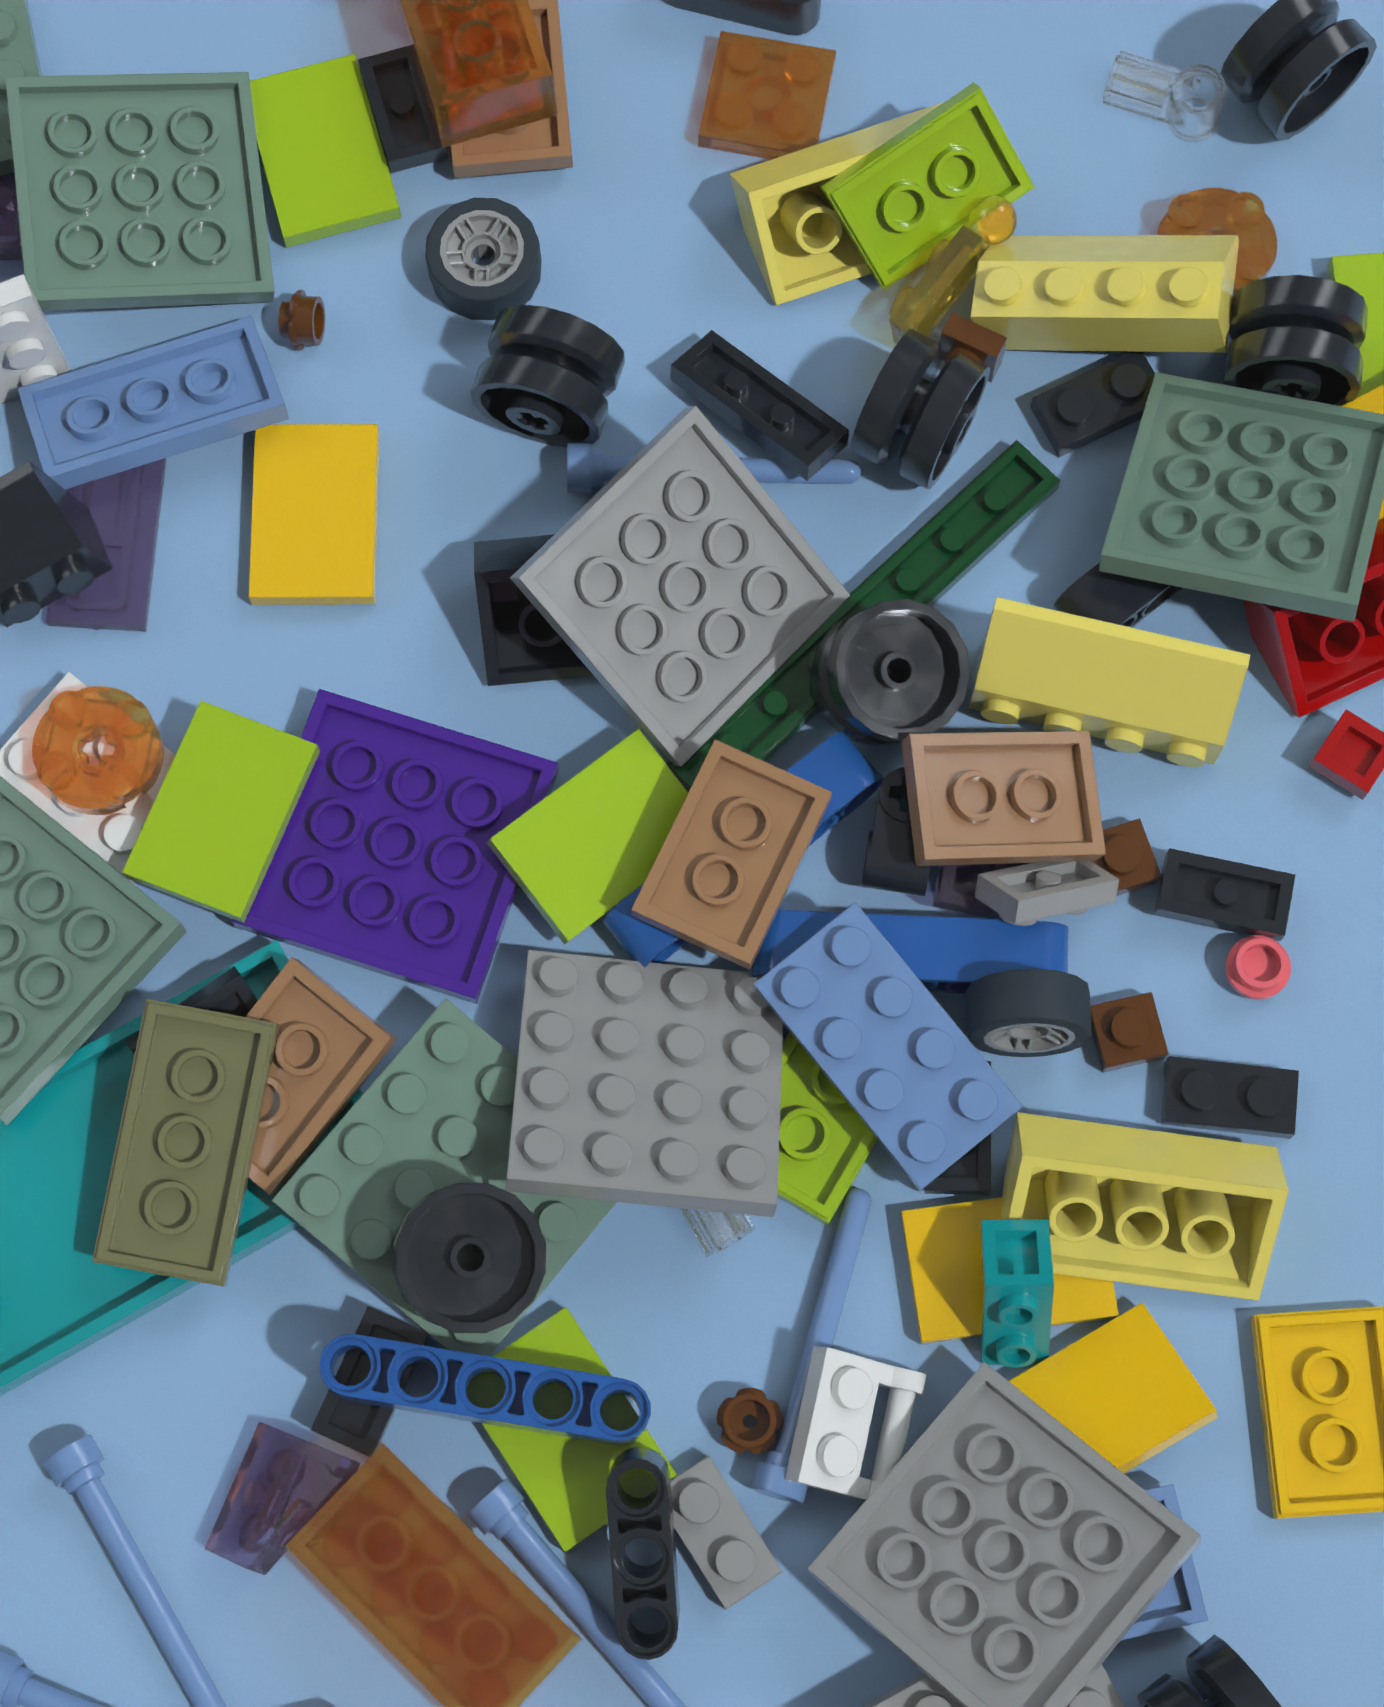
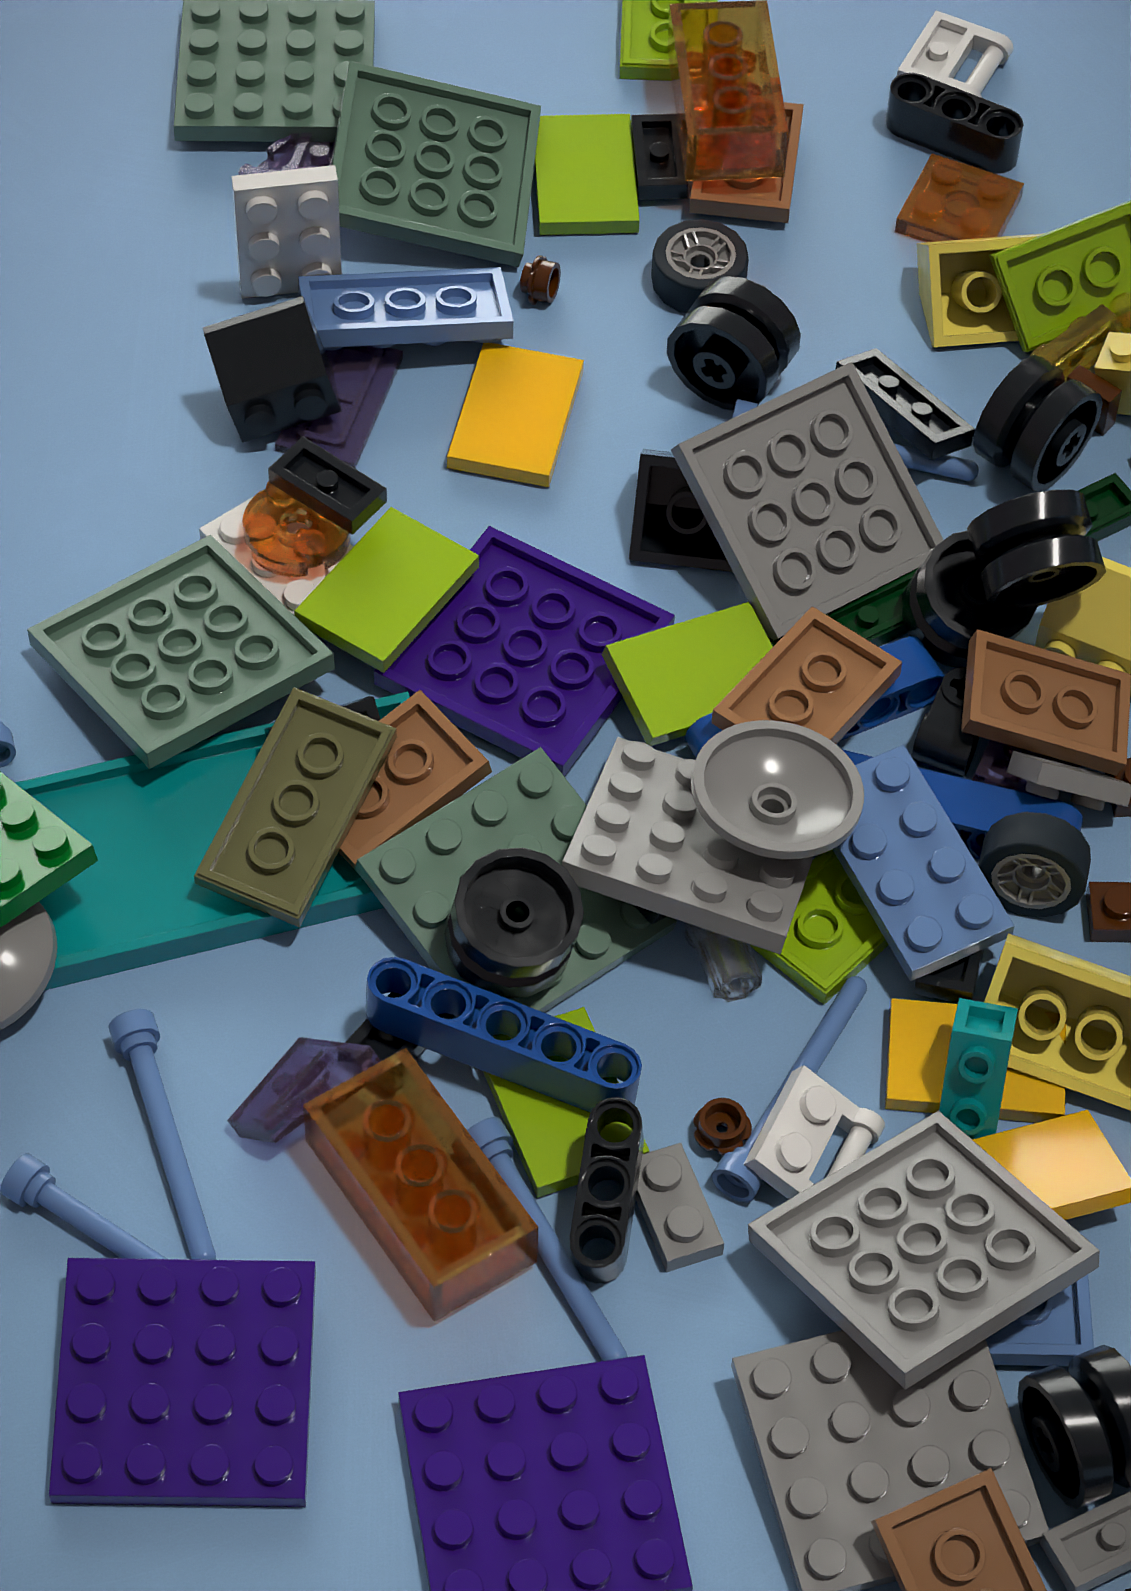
camera: 10 degrees right, 20 degrees down
(120, 704) = (327, 485): none -> black plate
(737, 980) = (777, 789): none -> light grey dish
(964, 639) = (1036, 549): none -> black wheel

